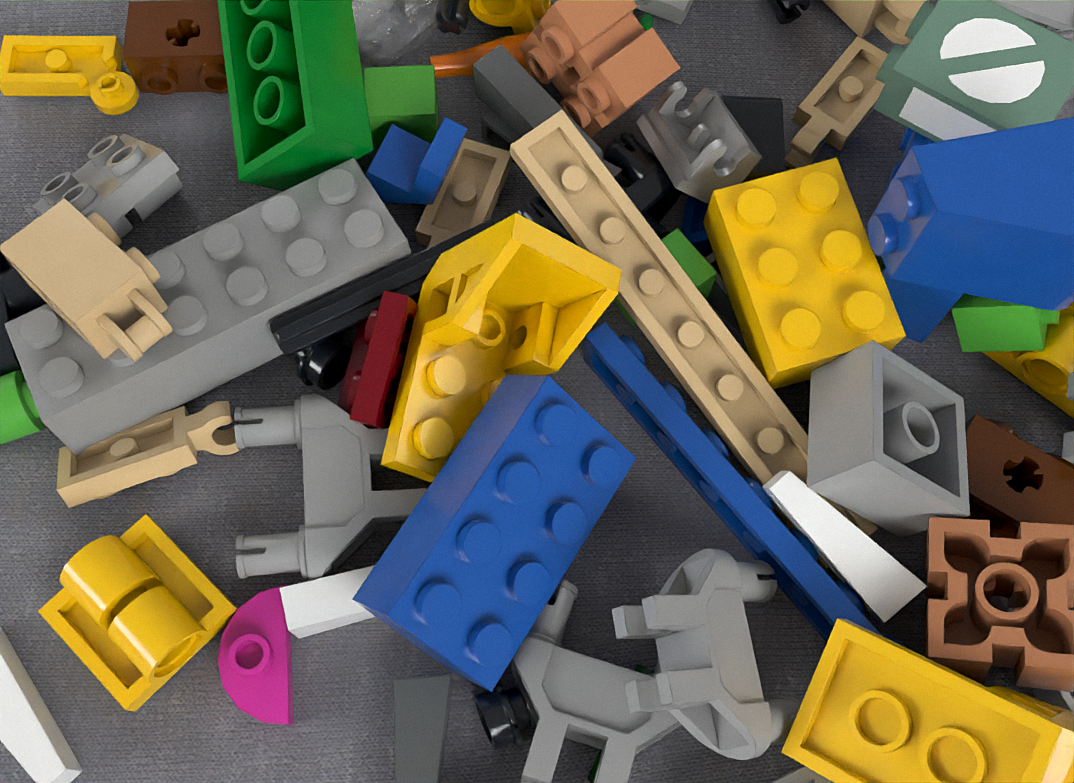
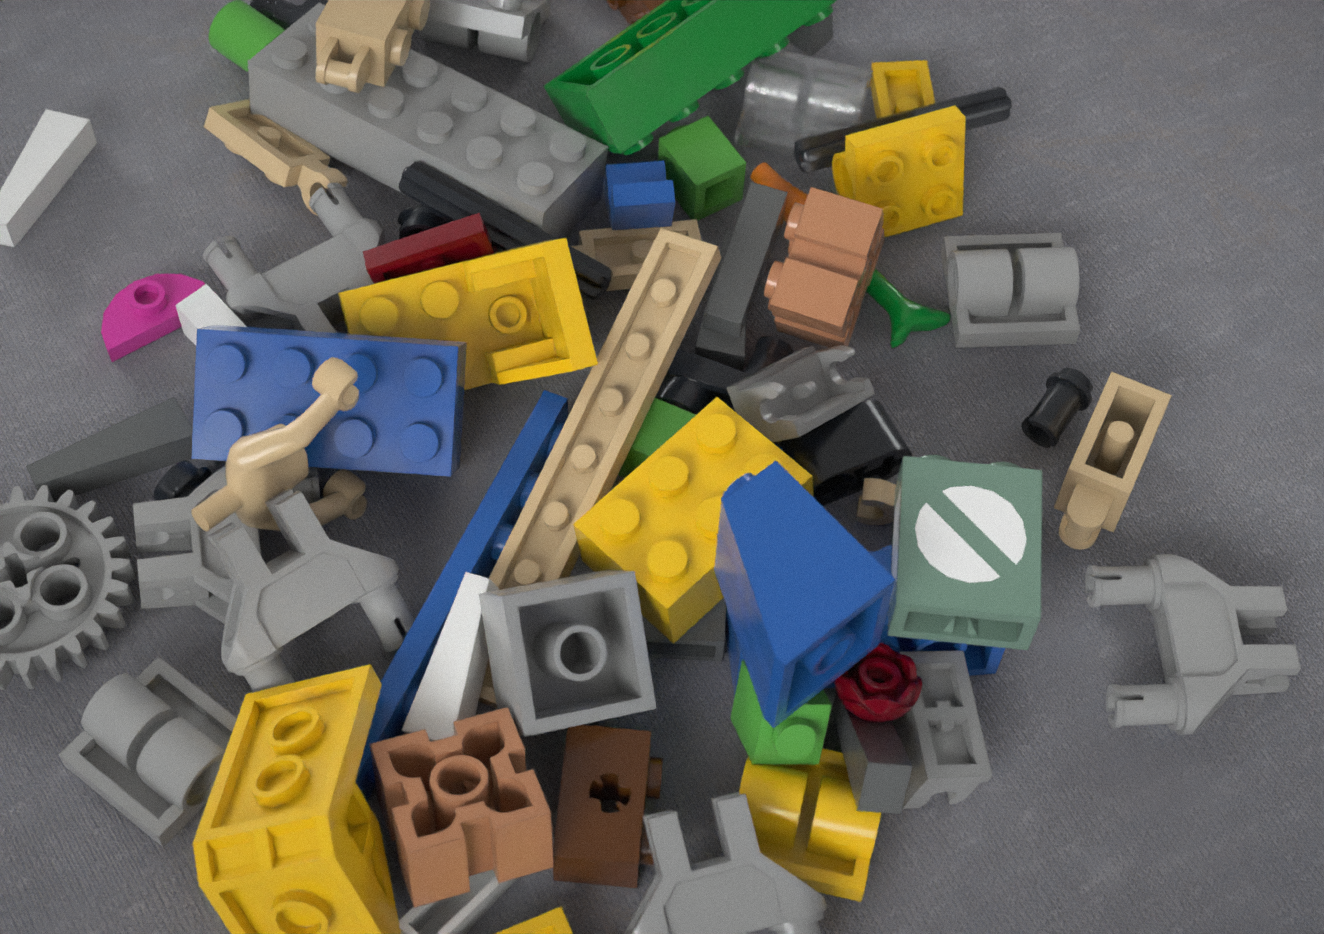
camera: 60 degrees right, 10 degrees down
(136, 610) = (148, 209): yellow plate -> none
(582, 602) = (276, 461): none -> tan piece

